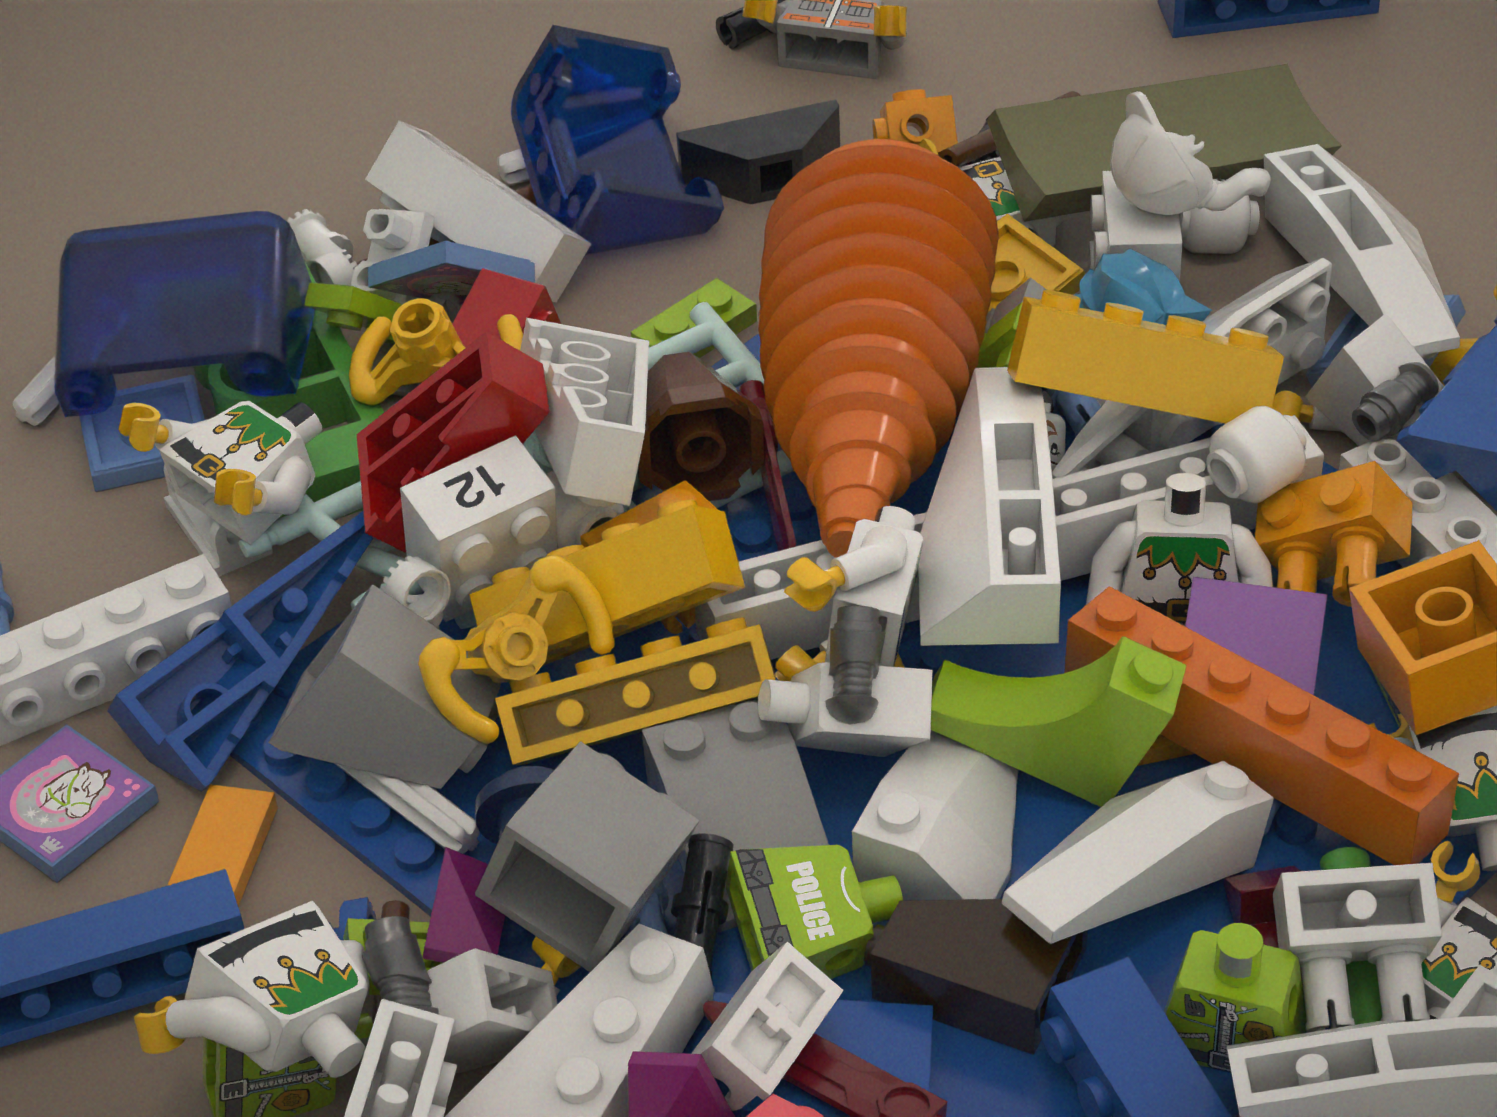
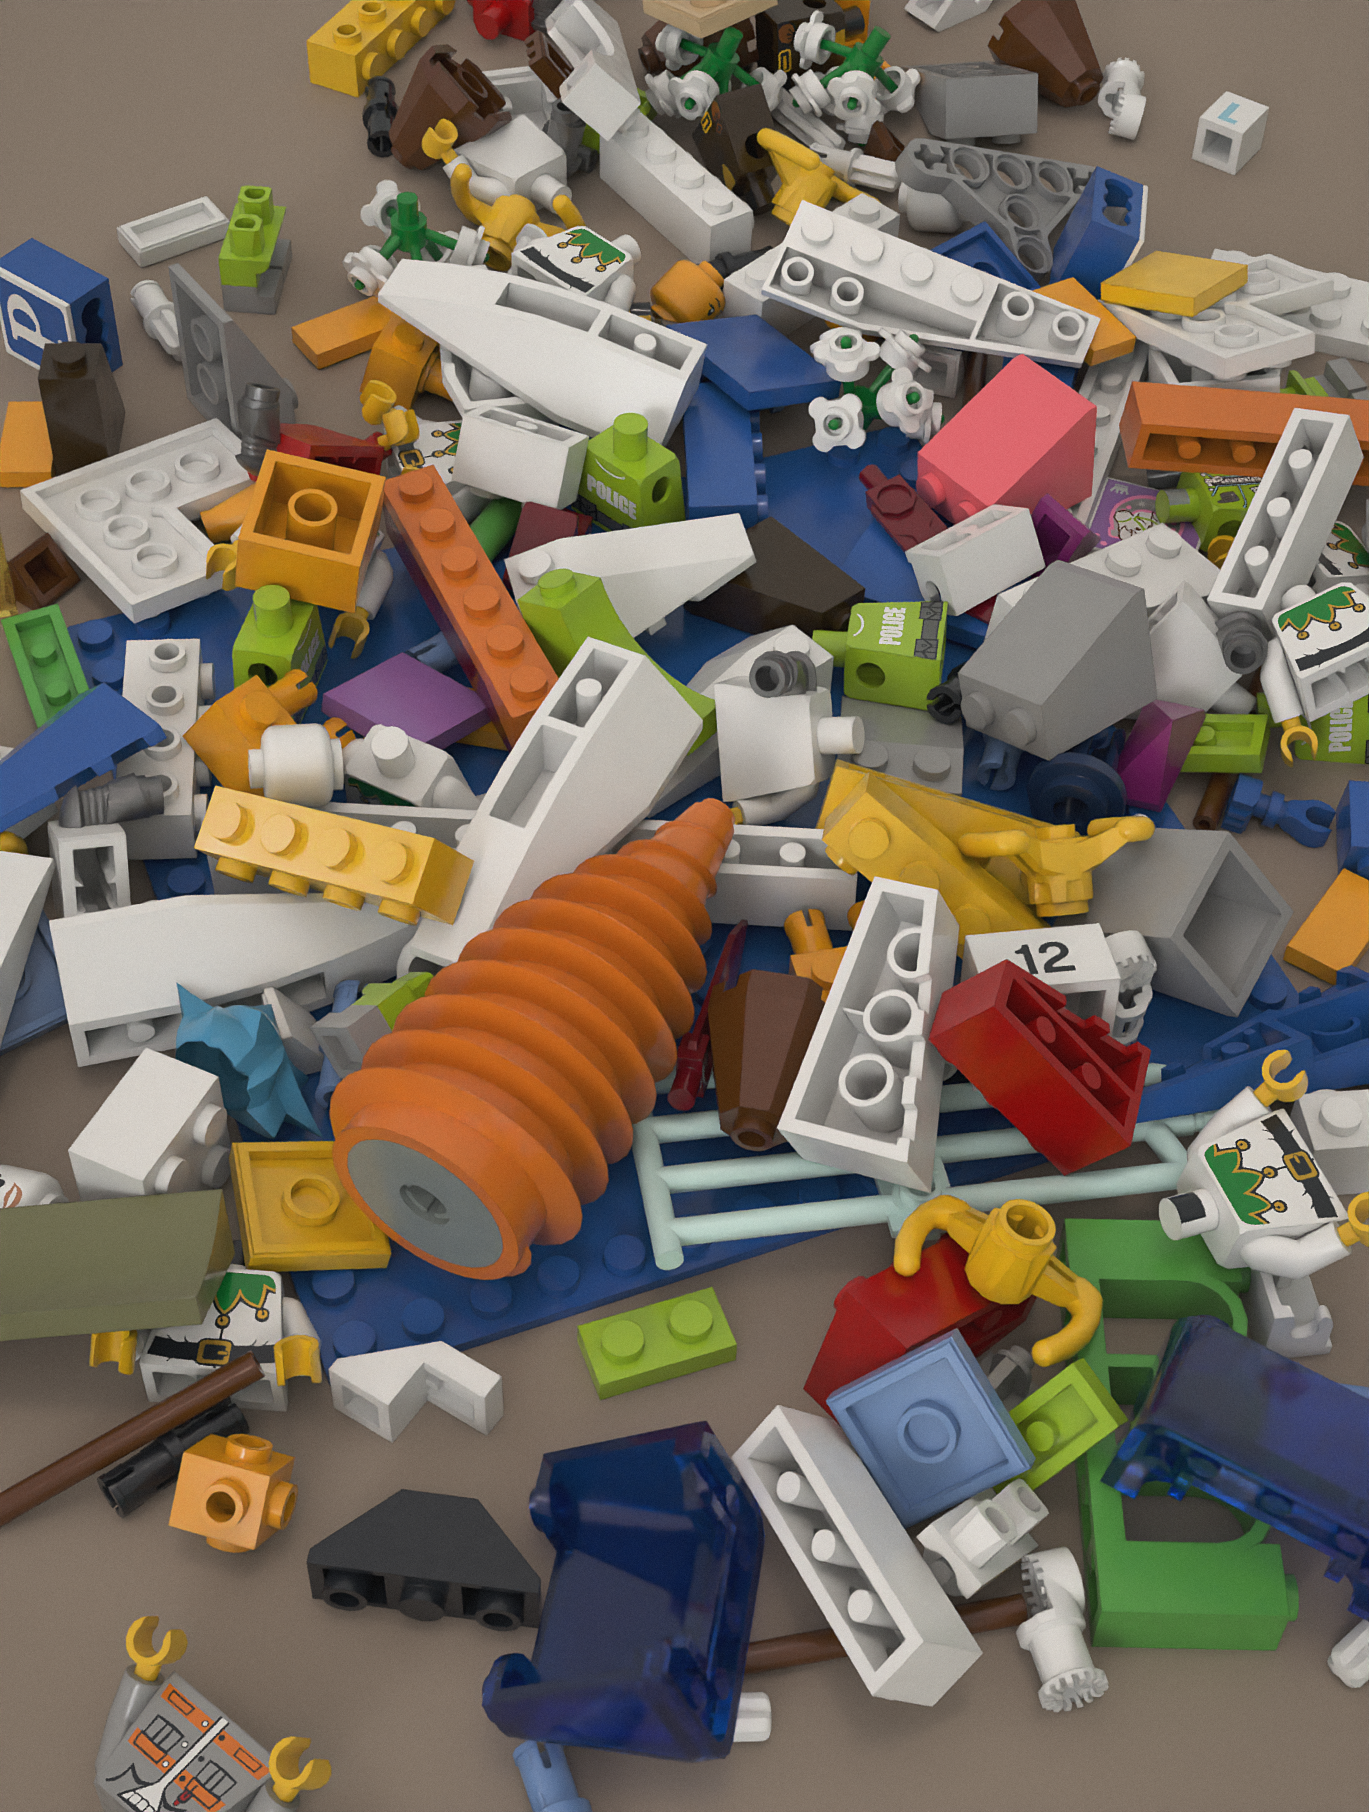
camera: 160 degrees left, 5 degrees up
(873, 573) = (731, 743): white torso -> none
(1160, 170) = (115, 1072): white piece -> none

